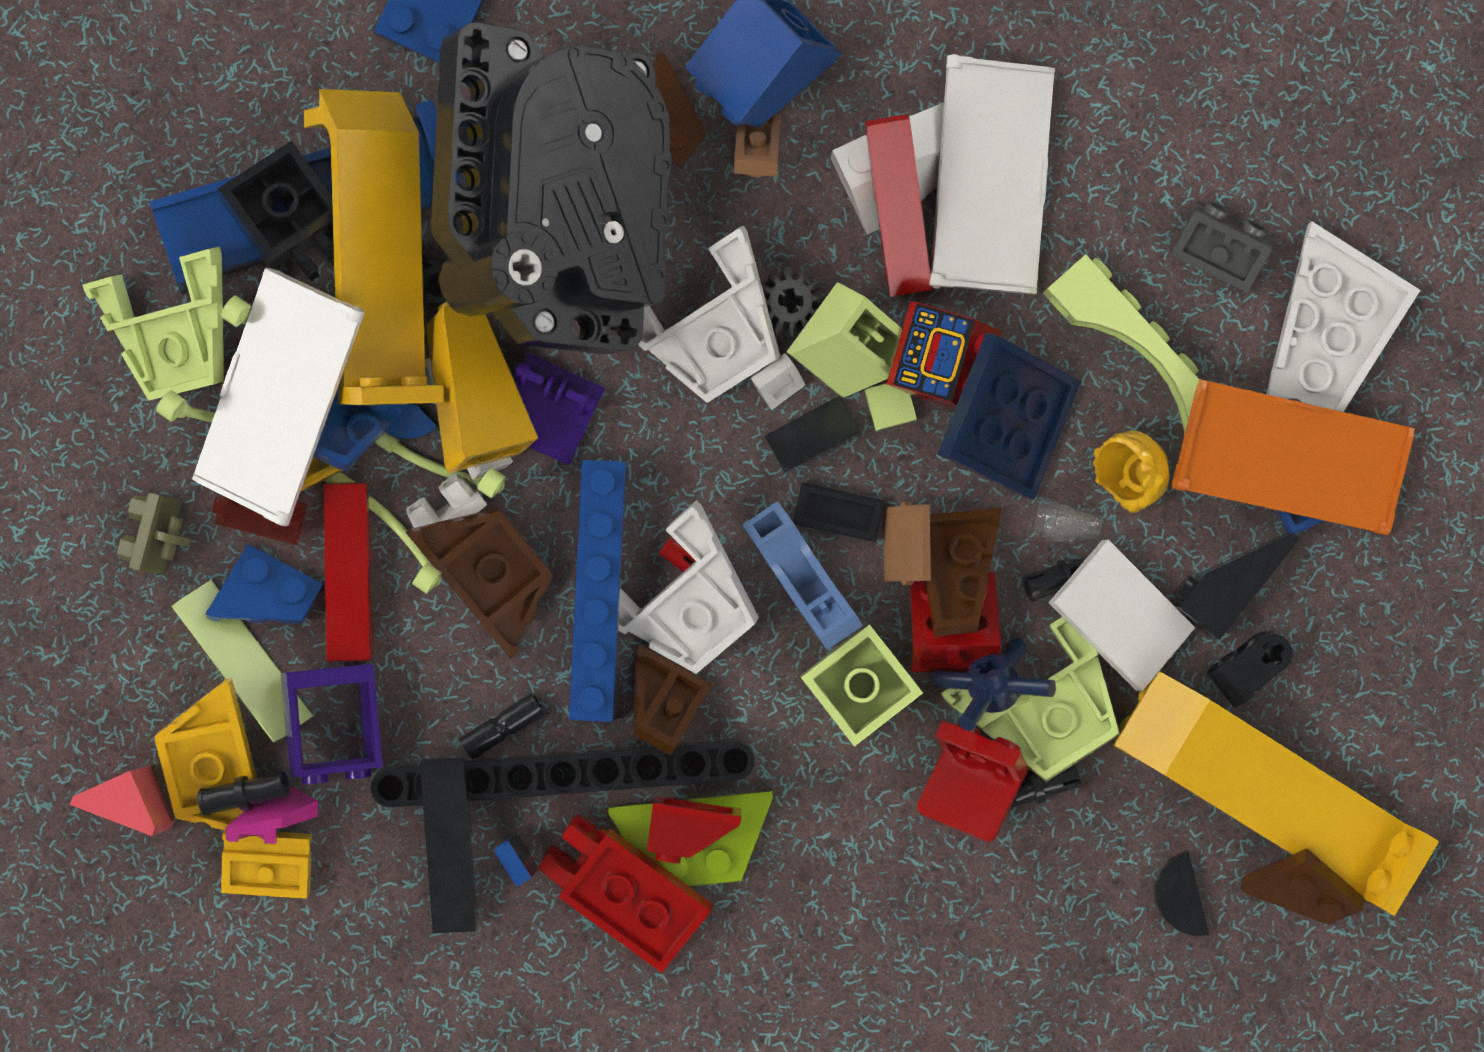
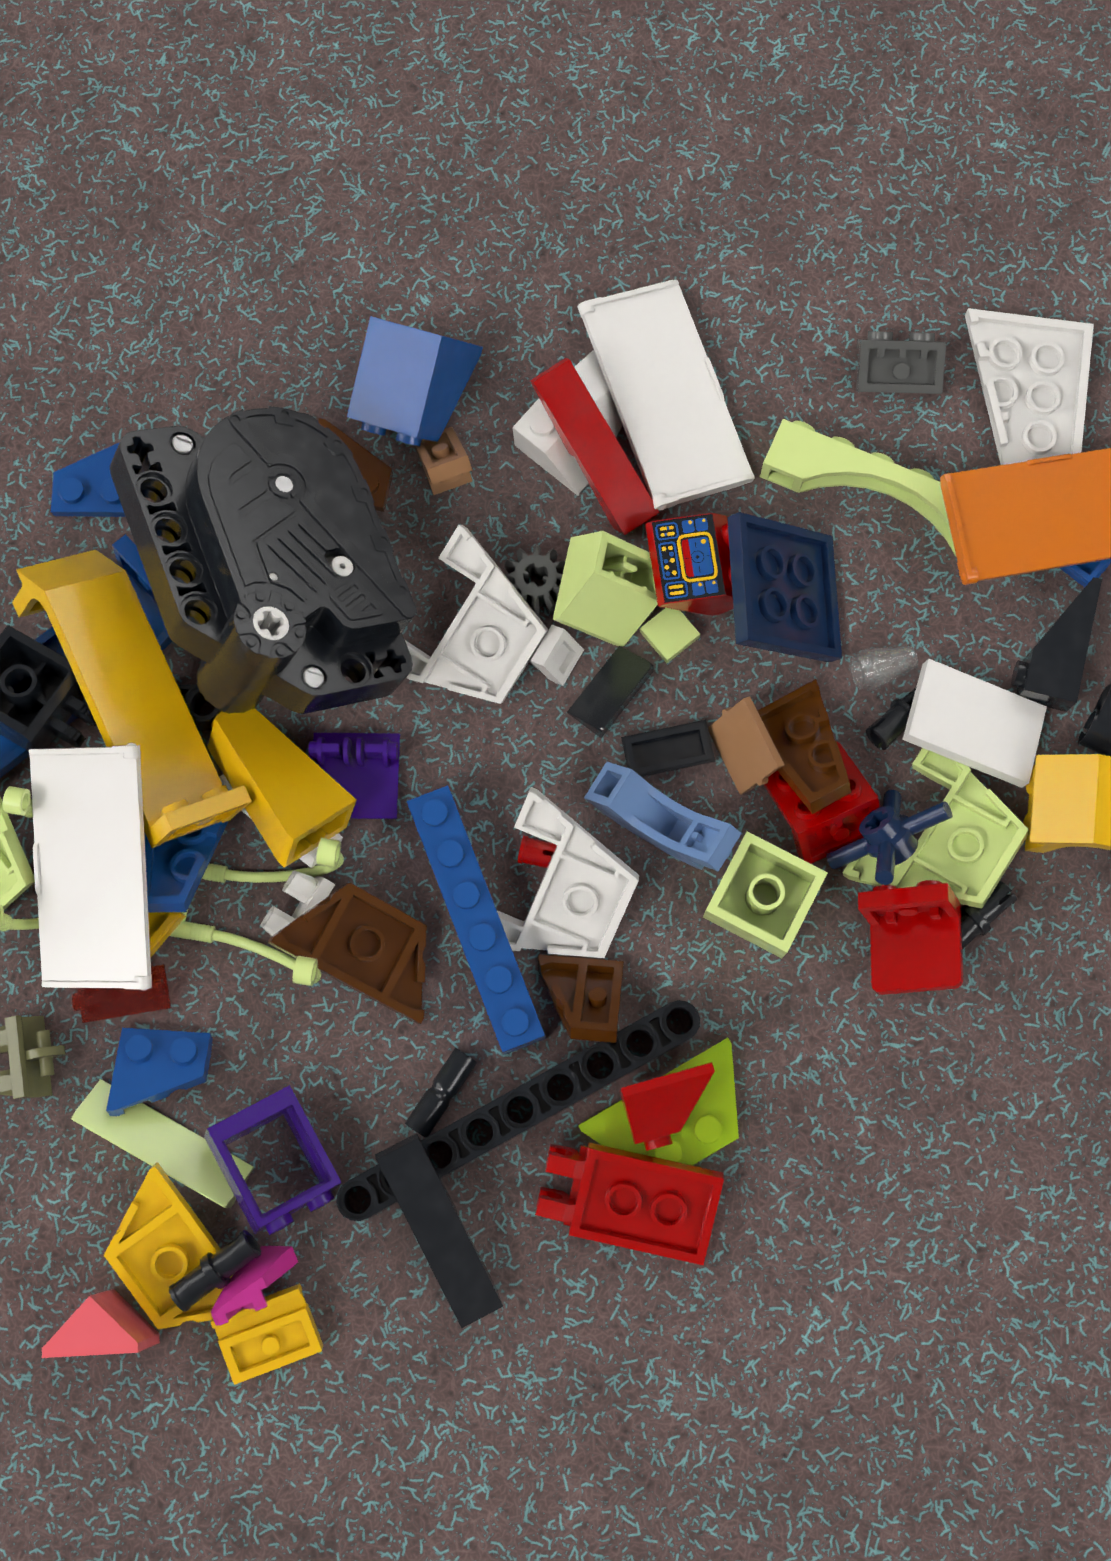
camera: 20 degrees left, 10 degrees down
(348, 572) = (229, 1010): red slope -> none
(412, 424) = (233, 846): blue tile -> none
(516, 859) = (510, 1213): blue tile -> none
(1132, 469) = (919, 588): yellow hair -> none

